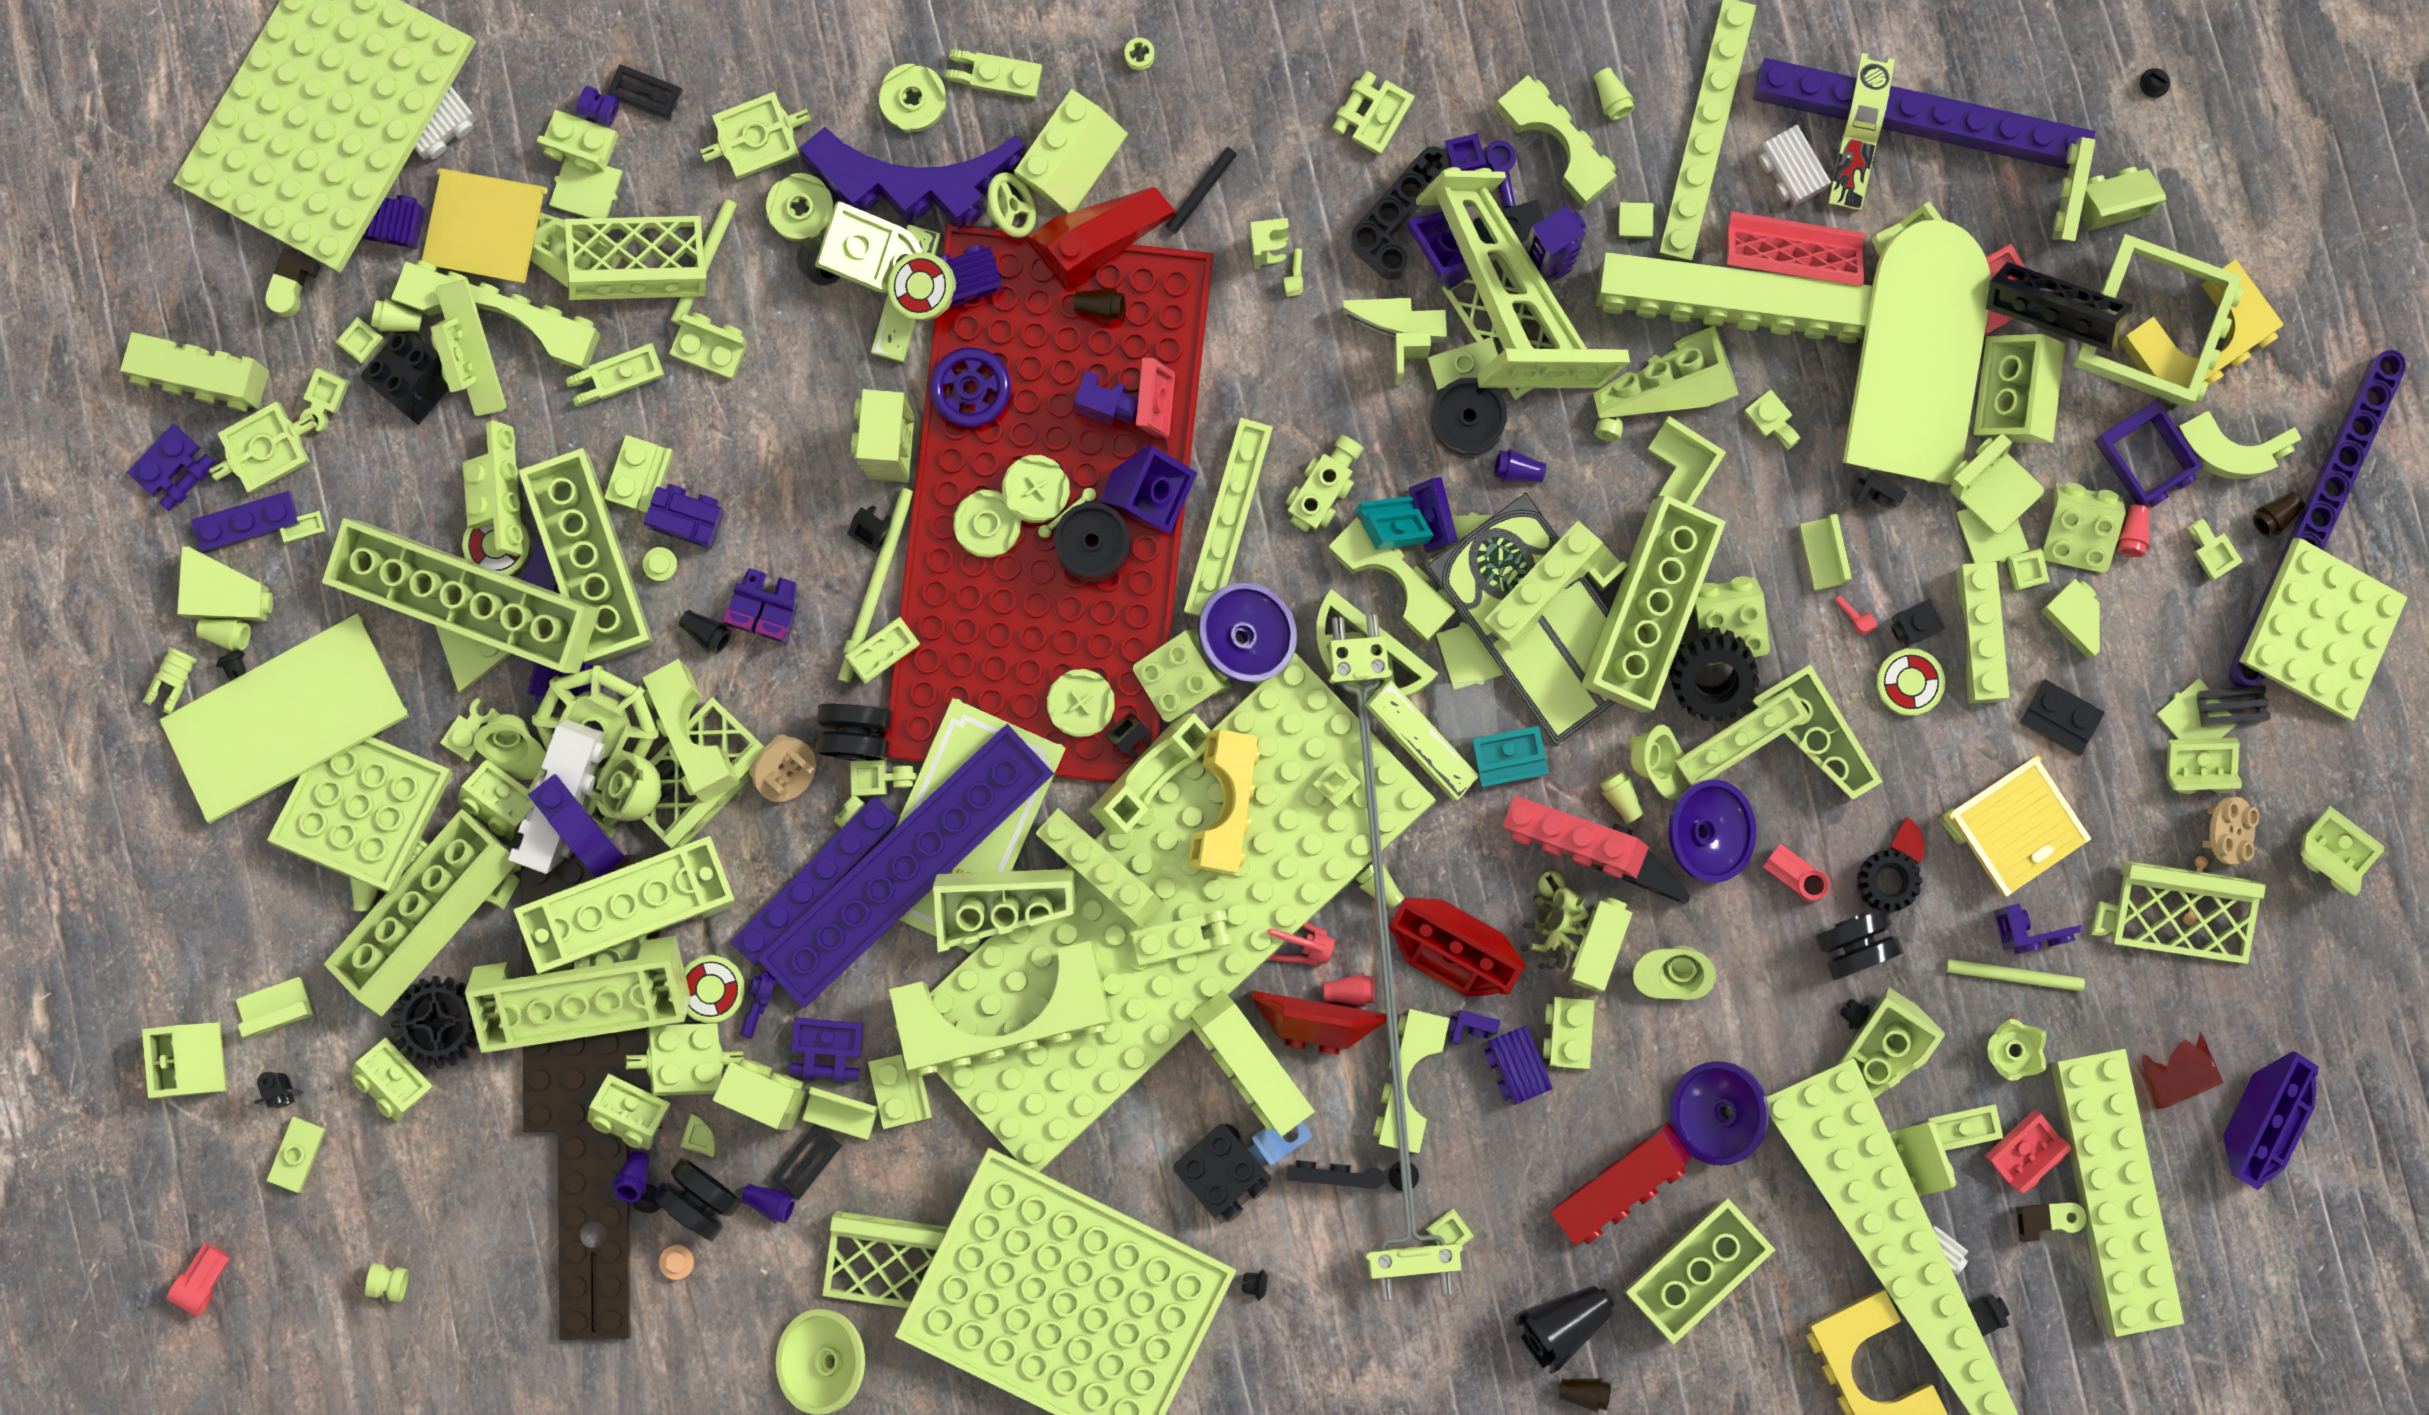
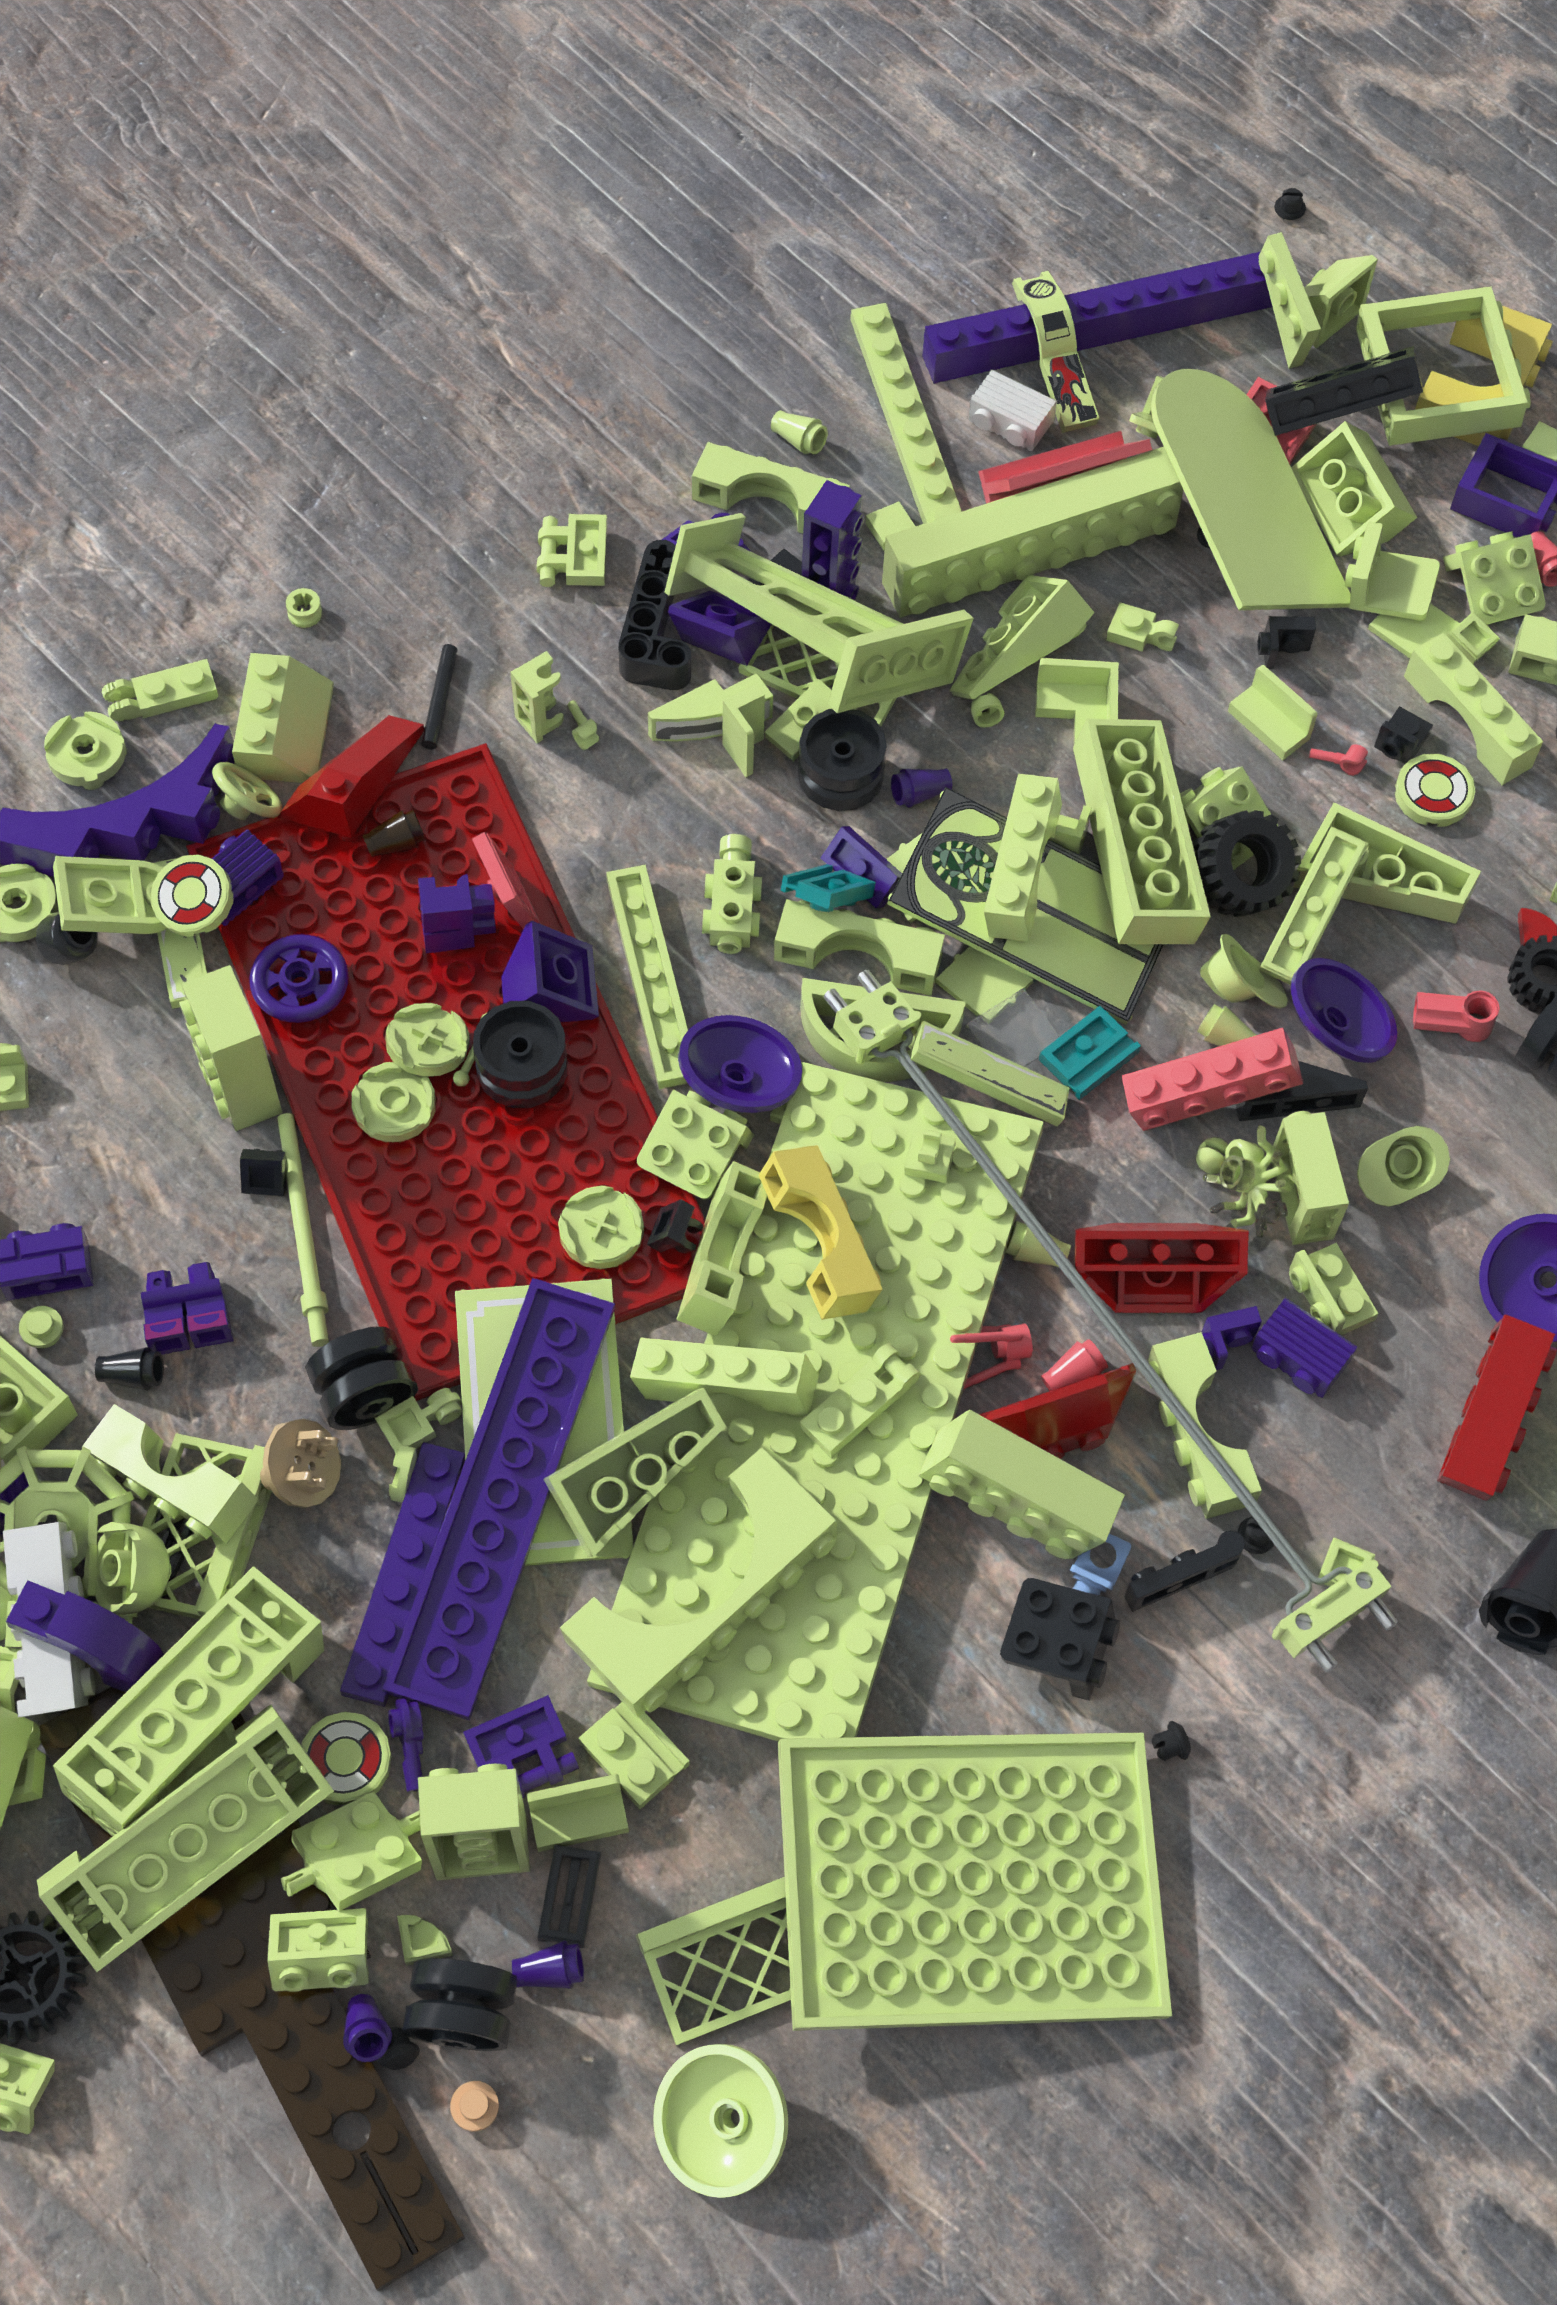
camera: 35 degrees left, 20 degrees down
(882, 650) = (347, 1283): yellowish green plate -> none

